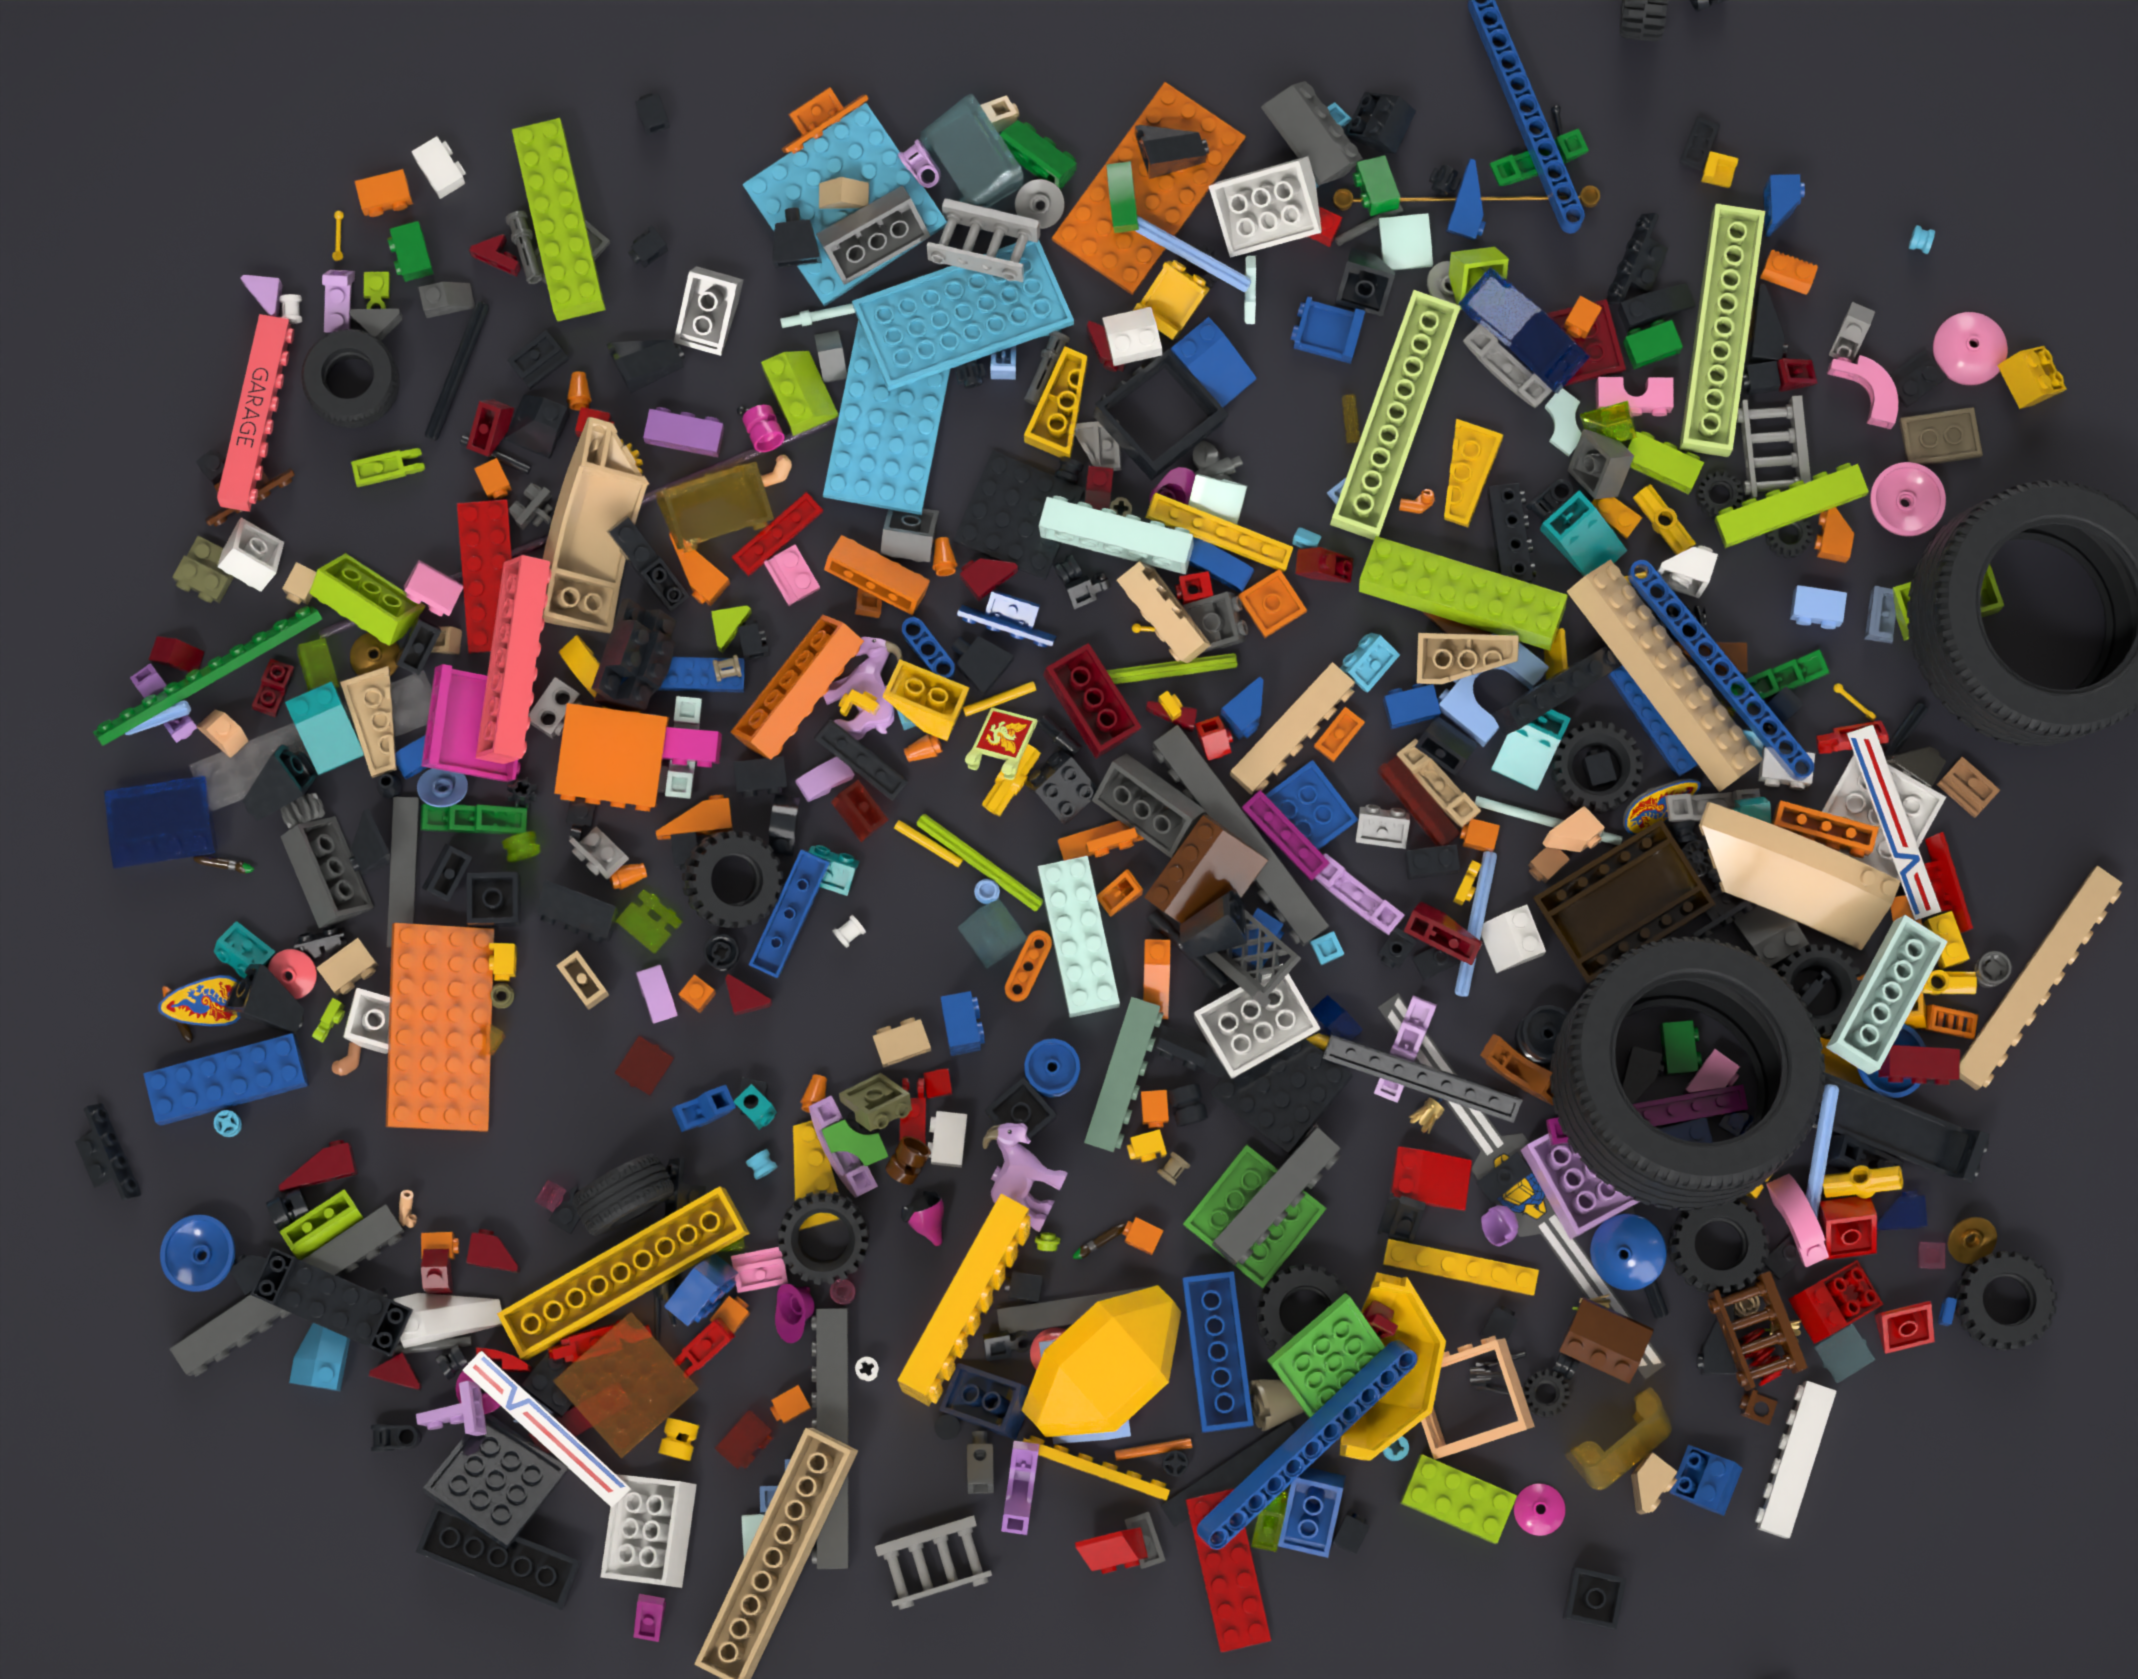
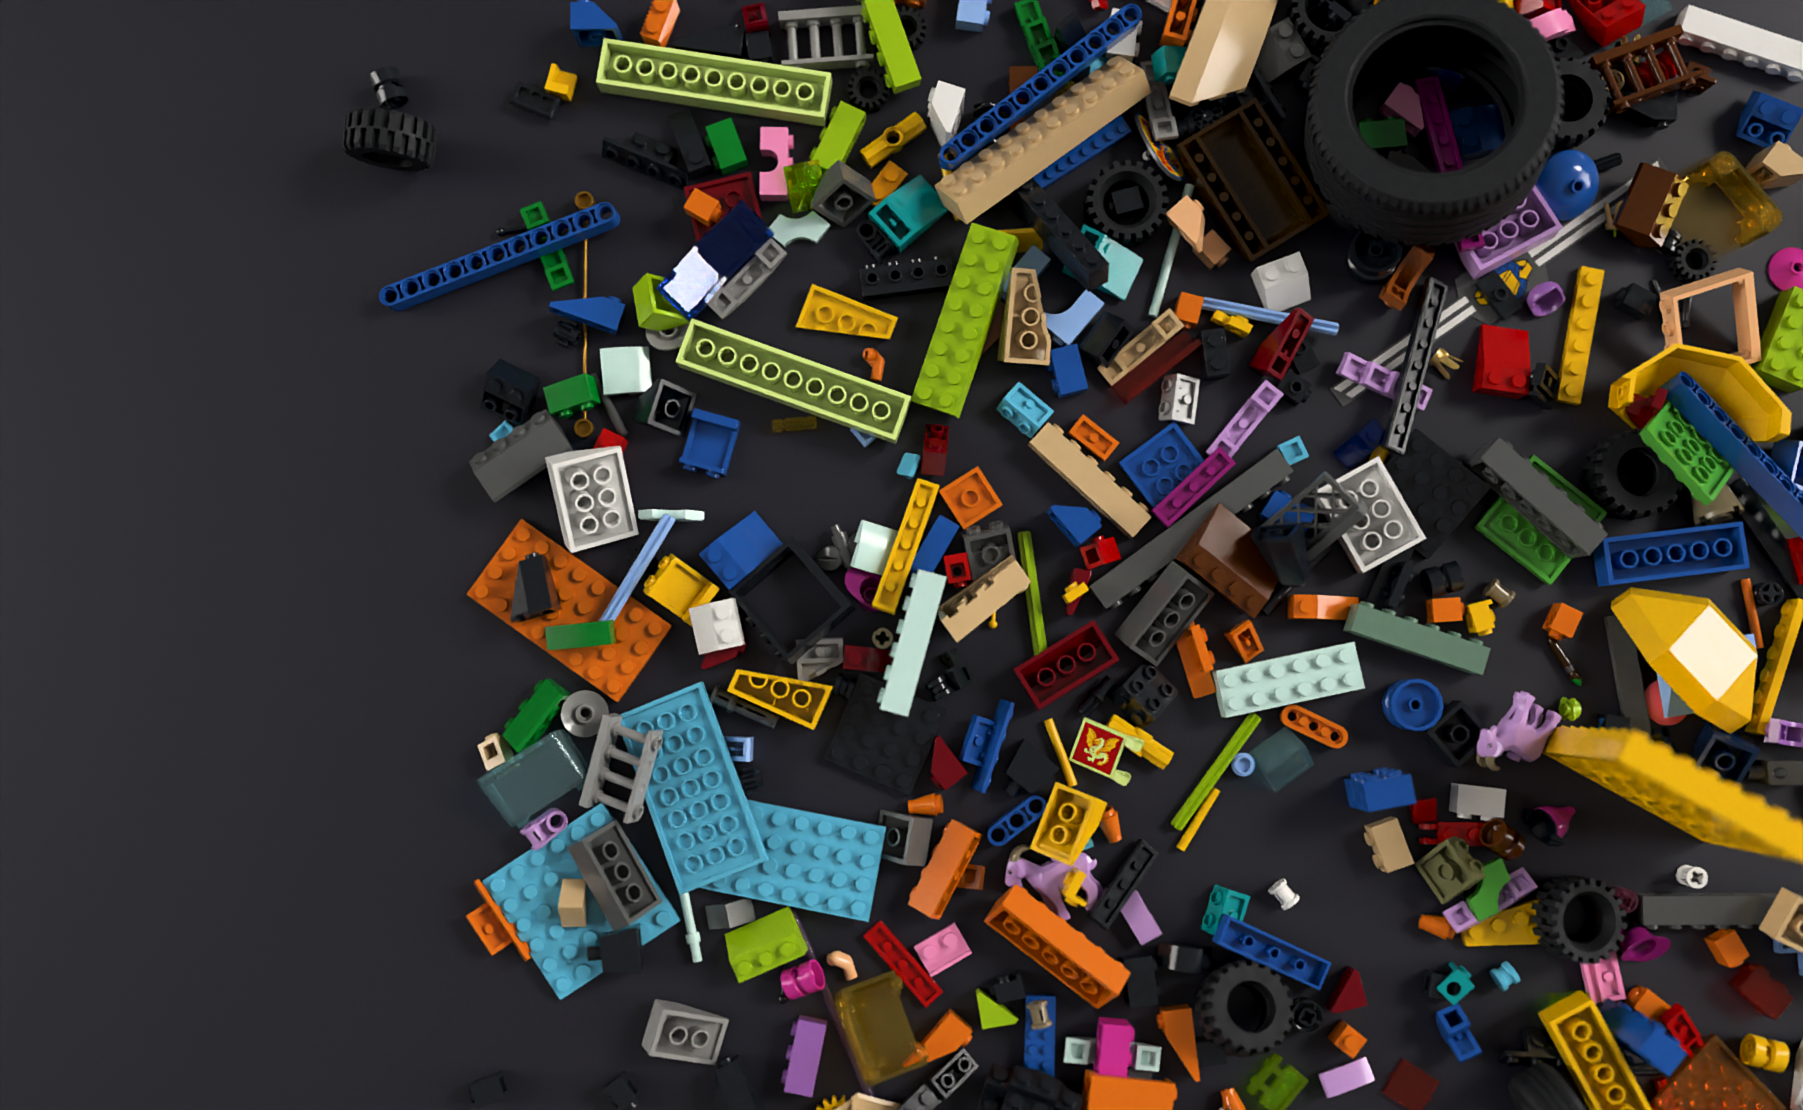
camera: 85 degrees left, 5 degrees up
(859, 811) = (1172, 885): clear red brick -> none

